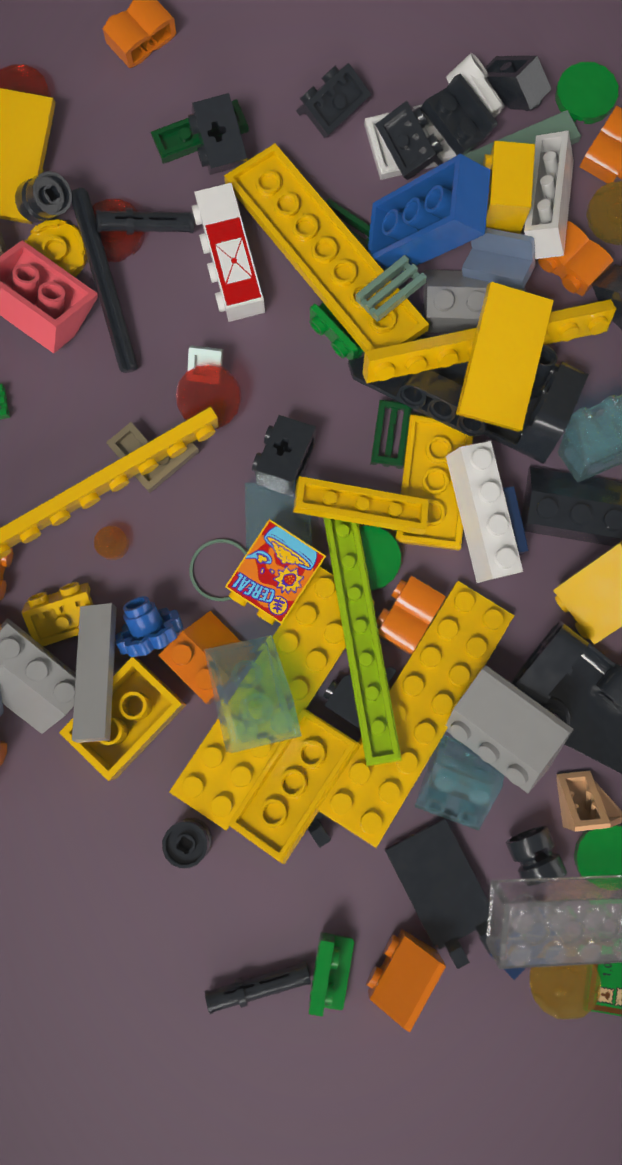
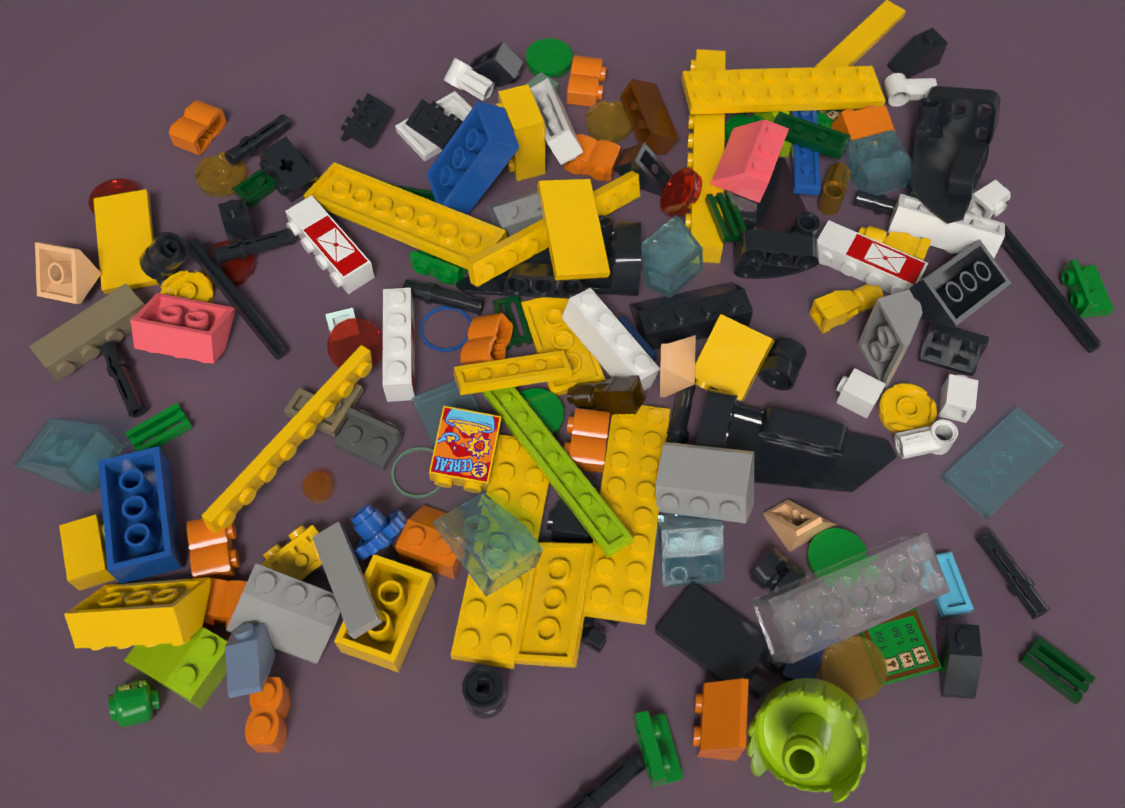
camera: 25 degrees left, 20 degrees down
(138, 180) = (236, 220): none -> black slope
(144, 105) = (218, 177): none -> clear yellow tile
(181, 512) = (369, 438): none -> dark grey bracket
(189, 80) = (250, 145): none -> black pin
(255, 411) = (398, 344): none -> white brick
(285, 455) = (435, 363): black brick -> none
(320, 366) = (444, 297): none -> black pin
(327, 385) = (437, 348): none -> blue piece
(350, 452) = (487, 339): none -> orange brick
(399, 266) = (461, 216): sand green tile -> none
(454, 576) = (609, 395): none -> dark brown piece
(459, 116) = (462, 94): black bracket -> none
(484, 1047) = (810, 738): none -> lime piece
(501, 258) = (534, 167): sand blue panel -> none
(525, 623) = (681, 413): none -> black pin
(545, 575) = (677, 366): none -> light nougat slope

